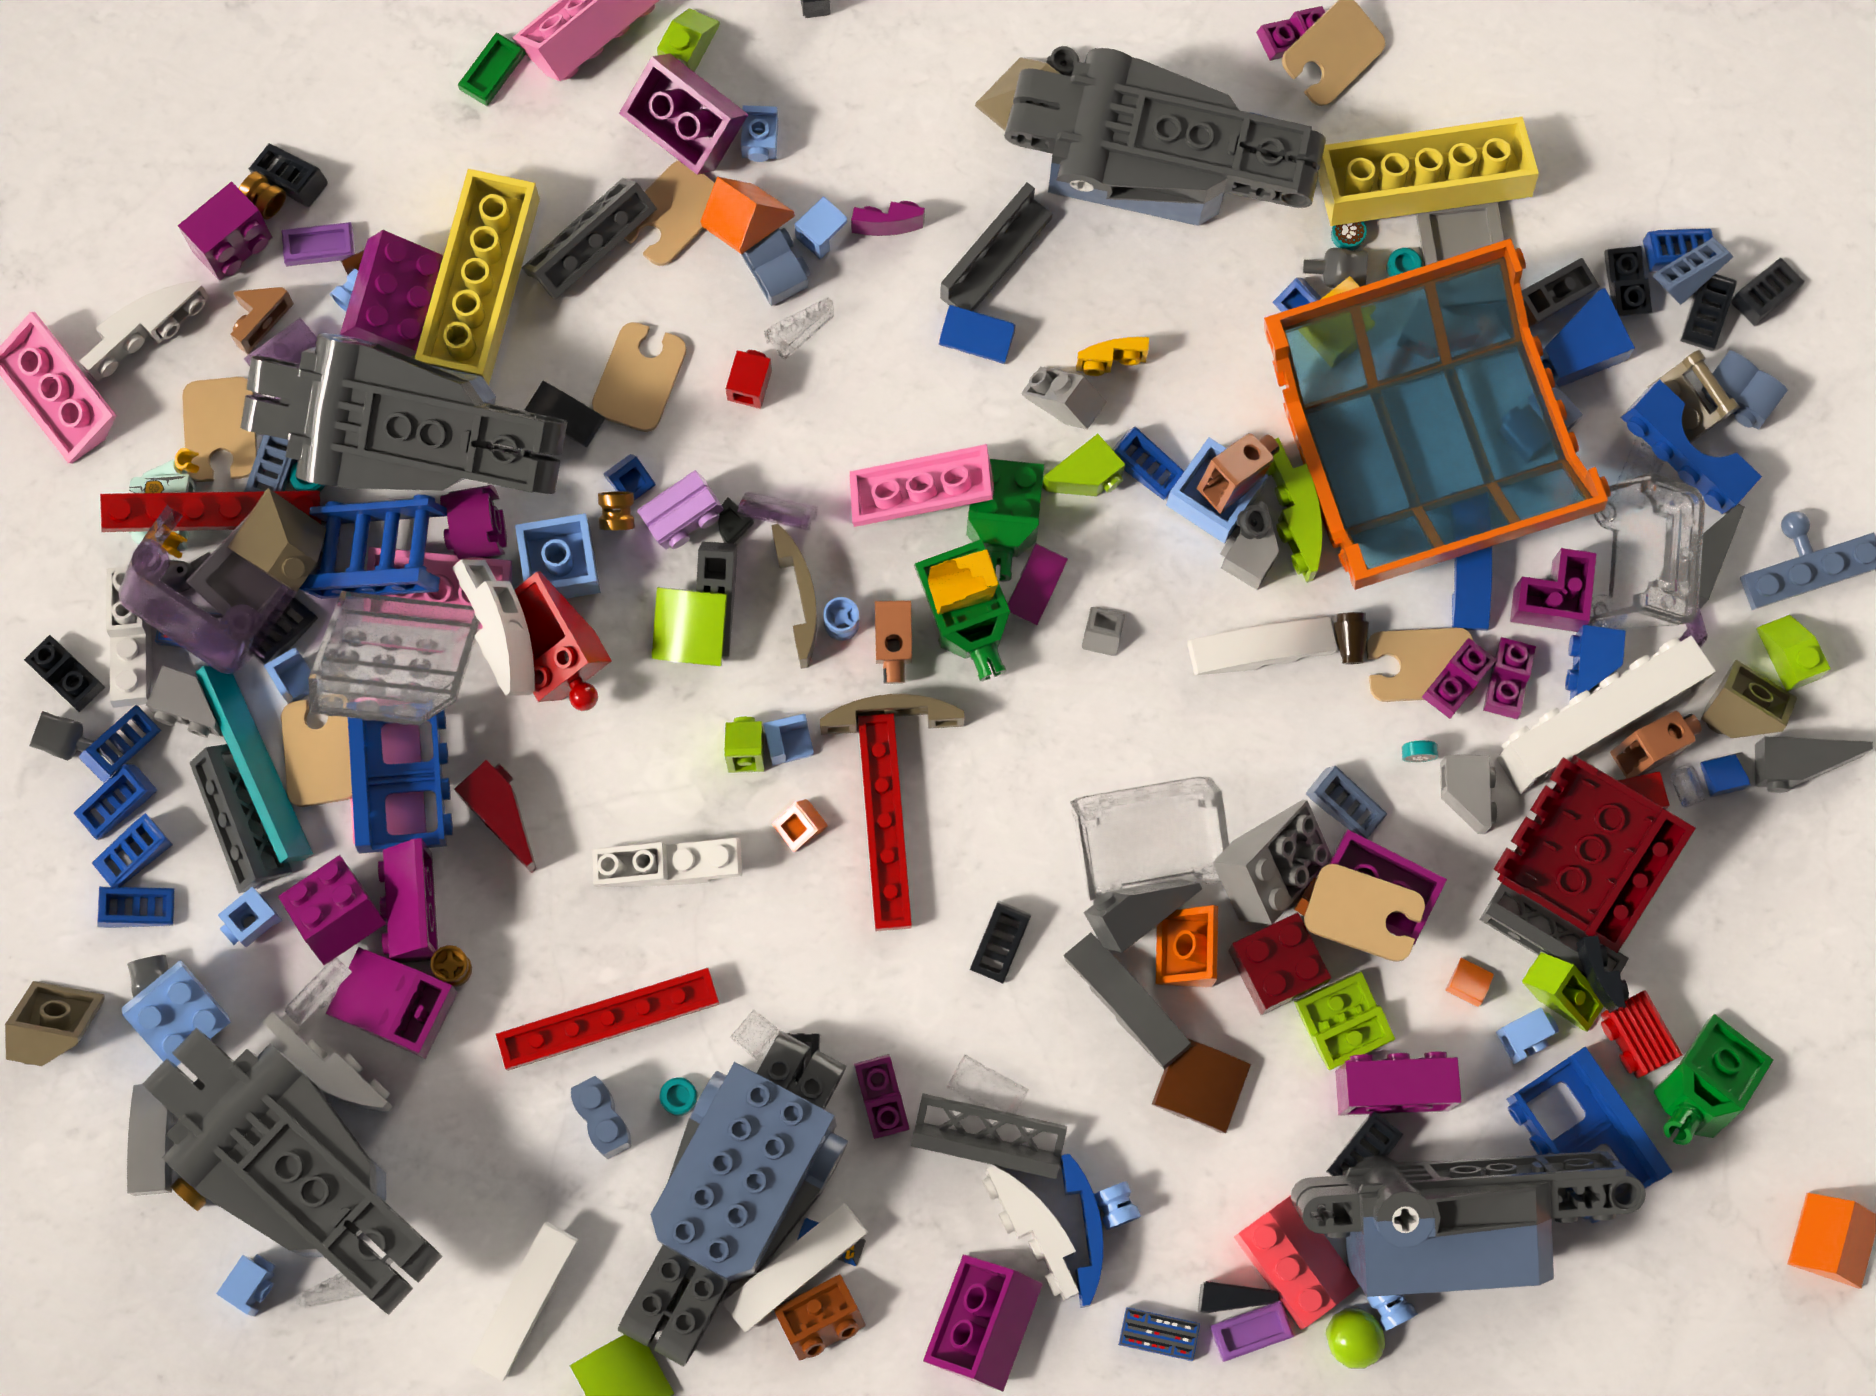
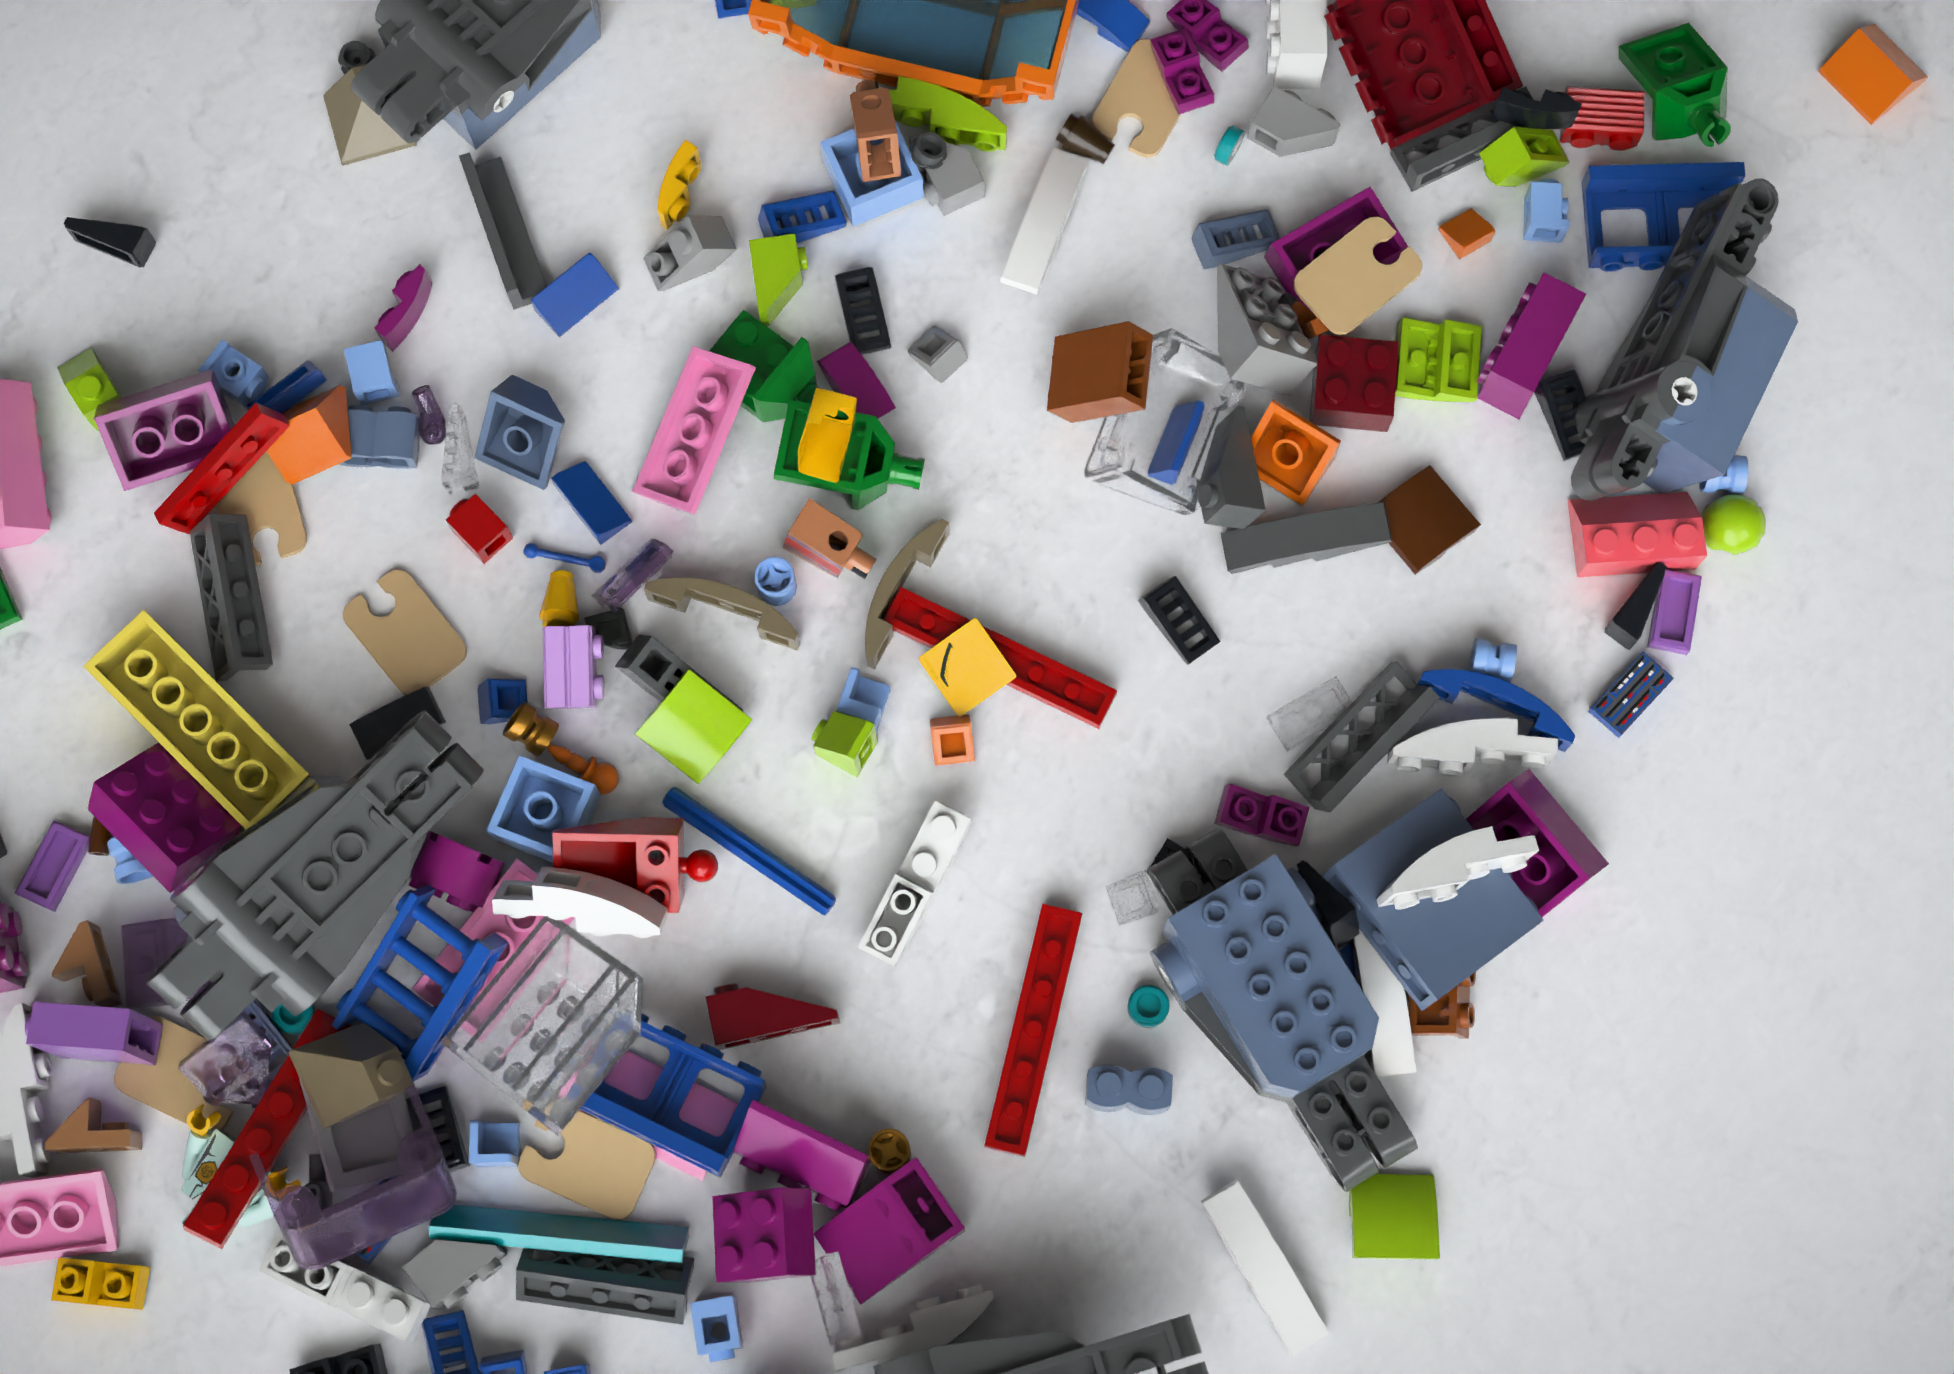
camera: 55 degrees left, 0 degrees up
(38, 467) = (100, 1283): none -> yellow slope
(138, 388) = (83, 1133): none -> medium nougat slope
(207, 347) = (93, 1033): none -> medium lavender brick
(243, 457) = (232, 1065): none -> clear purple slope
(613, 584) = (601, 774): none -> orange bar
(621, 726) = (749, 850): none -> blue axle
(675, 169) = (222, 468): none -> red plate
(728, 472) = (560, 601): none -> yellow cone
(767, 178) = (291, 388): none -> blue tile
(776, 479) = (596, 563): none -> blue hinge
(815, 290) = (431, 418): none -> clear purple arm
(822, 446) = (591, 501): none -> blue slope
(828, 1191) = (1333, 907): none -> black slope
(843, 360) = (521, 431): none -> sand blue slope
(860, 801) = (967, 667): none -> yellow sticker
(888, 1265) = (1433, 942): none -> sand blue panel
(905, 1254) = (1453, 864): none -> white slope
(1121, 532) = (856, 280): none -> black slope
(1142, 855) = (1176, 442): none -> blue slope
(1157, 760) = (1100, 372): none -> dark orange brick

